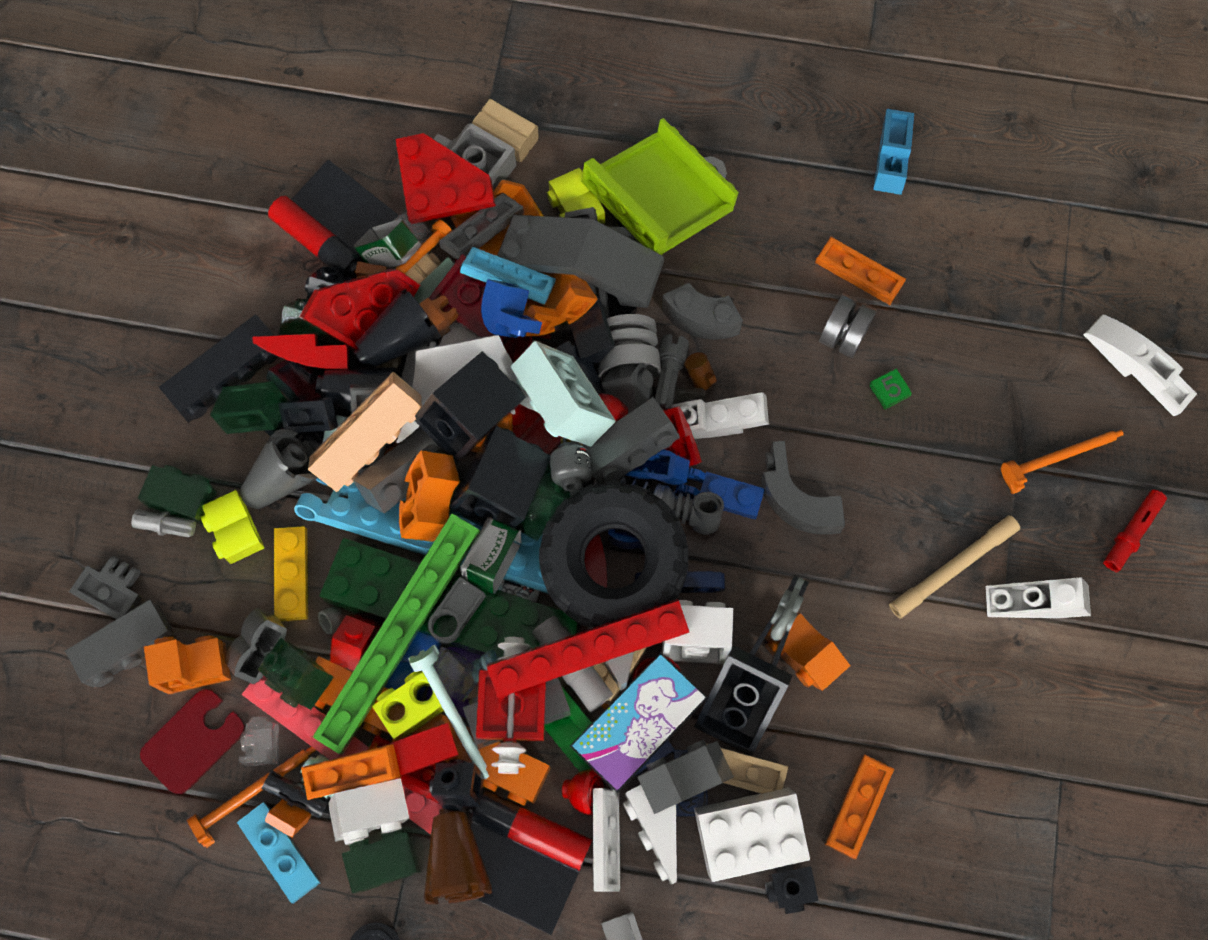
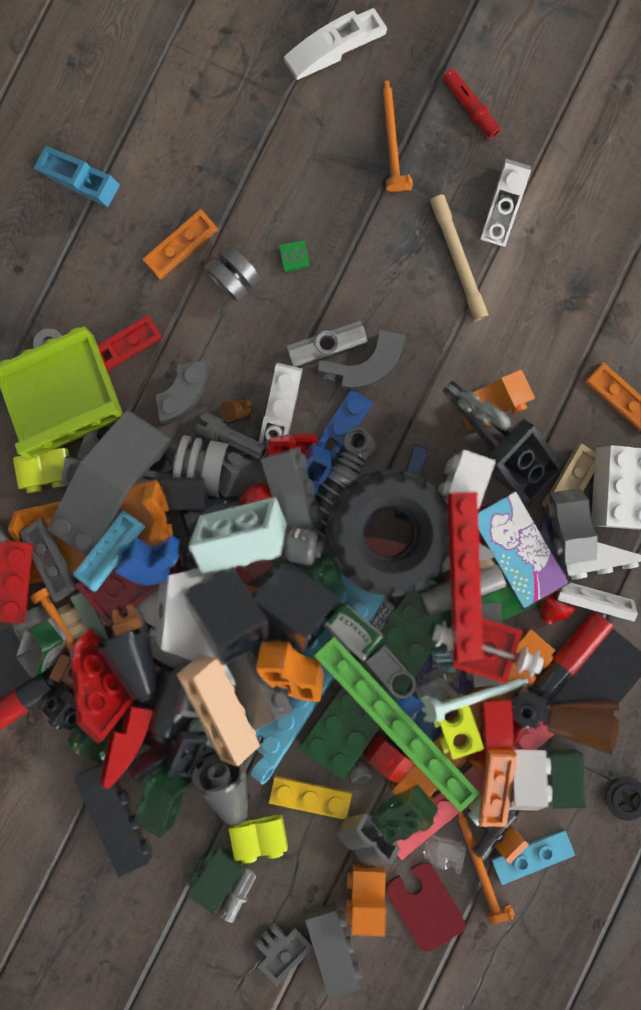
camera: 75 degrees left, 15 degrees up
(736, 247) = (129, 342): none -> red plate
(816, 463) = (343, 338): none -> light grey piece

